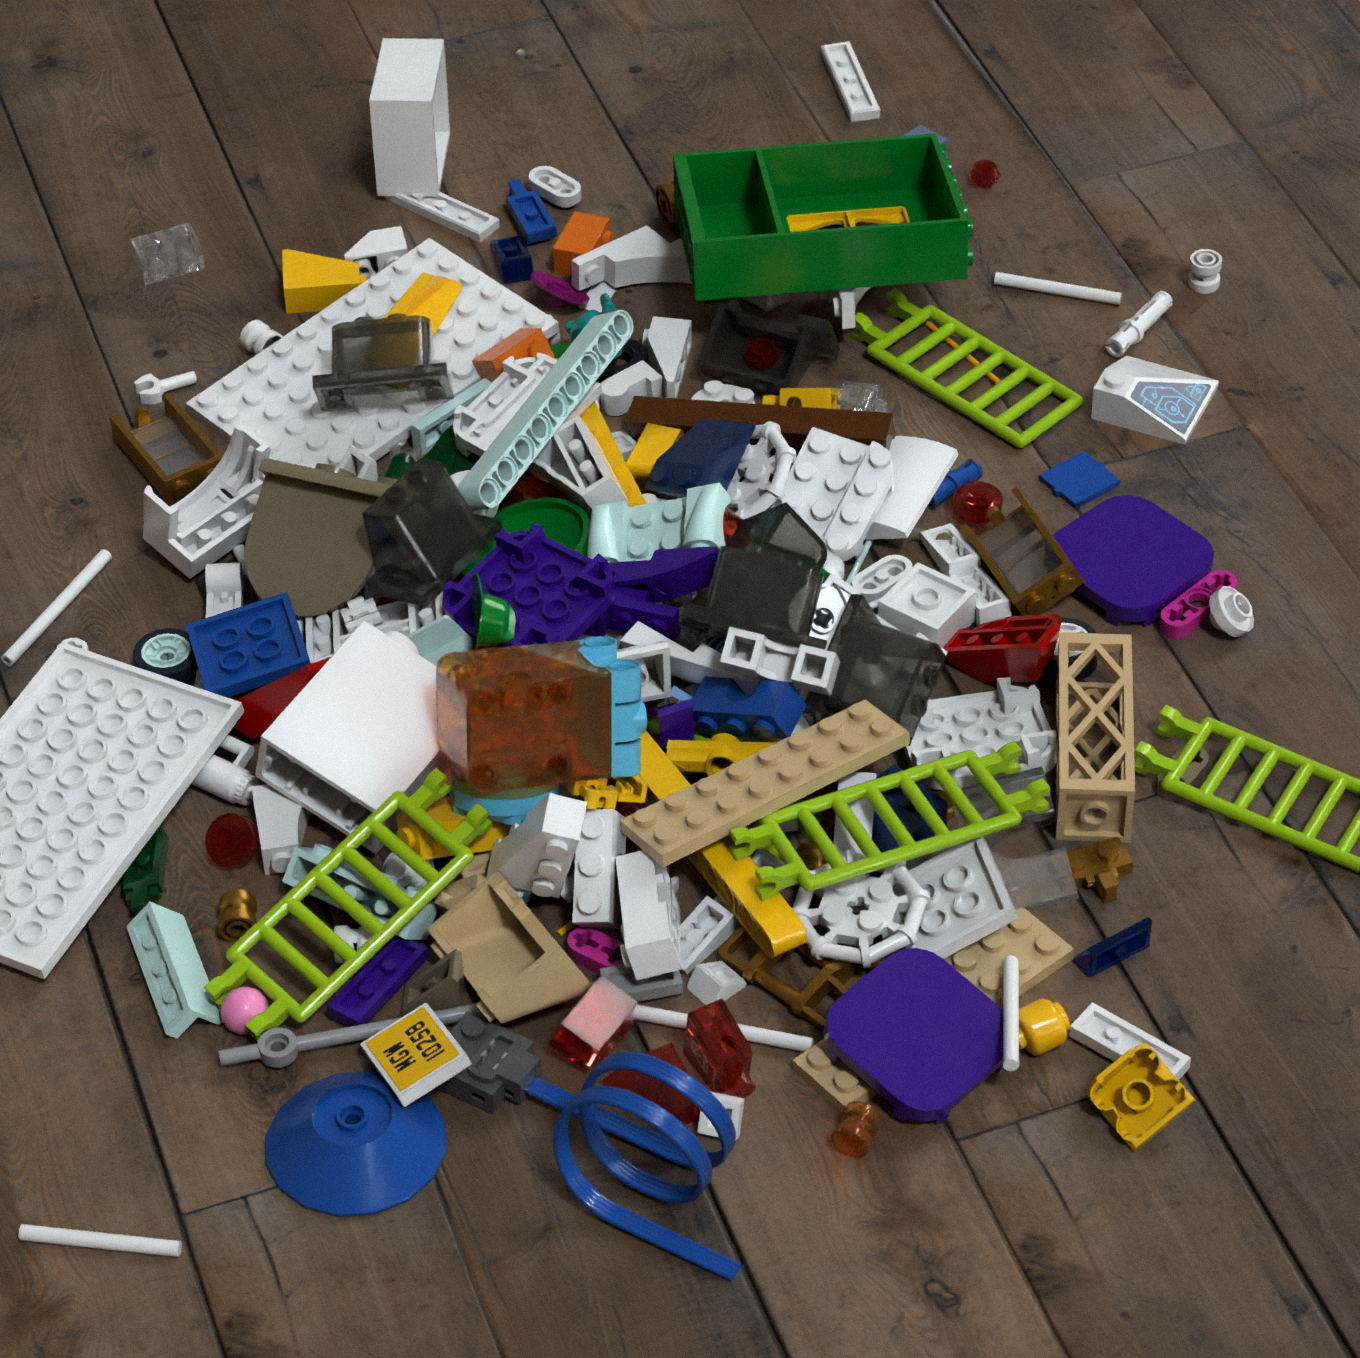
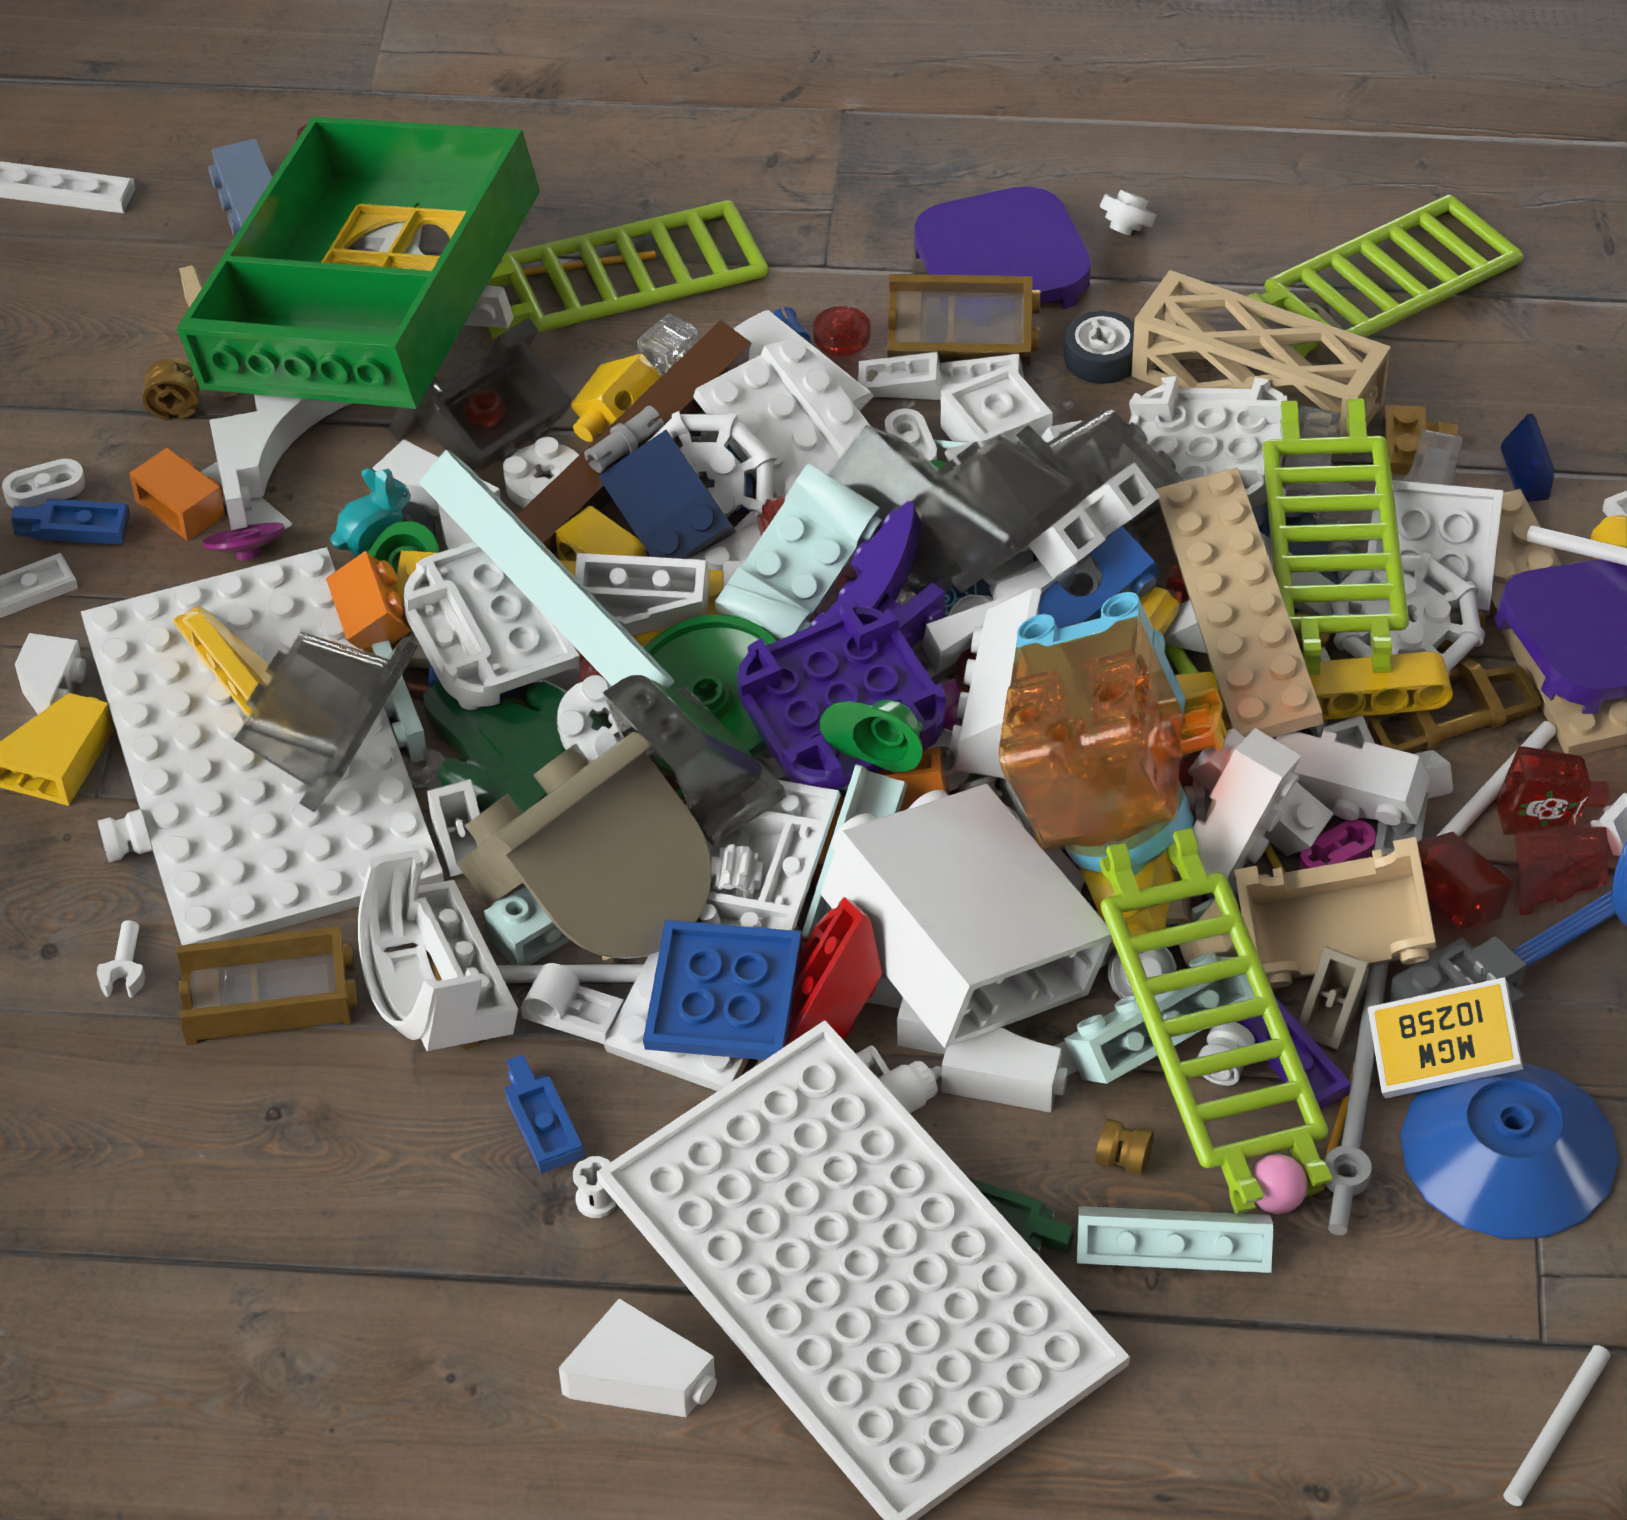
camera: 65 degrees left, 5 degrees up
(56, 608) = (471, 1185): white piece -> none
(124, 615) = (541, 1117): none -> blue hinge
(167, 654) = (645, 1075): wheel -> none
(232, 840) = (1004, 1115): clear red plate -> none
(512, 259) = (140, 565): clear blue slope -> none
(738, 411) = (623, 439): none -> light grey pin
(1006, 648) = (1106, 363): red wedge -> none
(1057, 288) = (563, 141): white bar -> none
(1079, 479) = (846, 250): blue piece -> none
(1132, 330) = (654, 126): white pin -> none
(1151, 398) = (763, 154): white slope -> none
(1193, 616) = (1091, 220): dark pink beam -> none
(1204, 271) = (606, 42): white wheel -> none

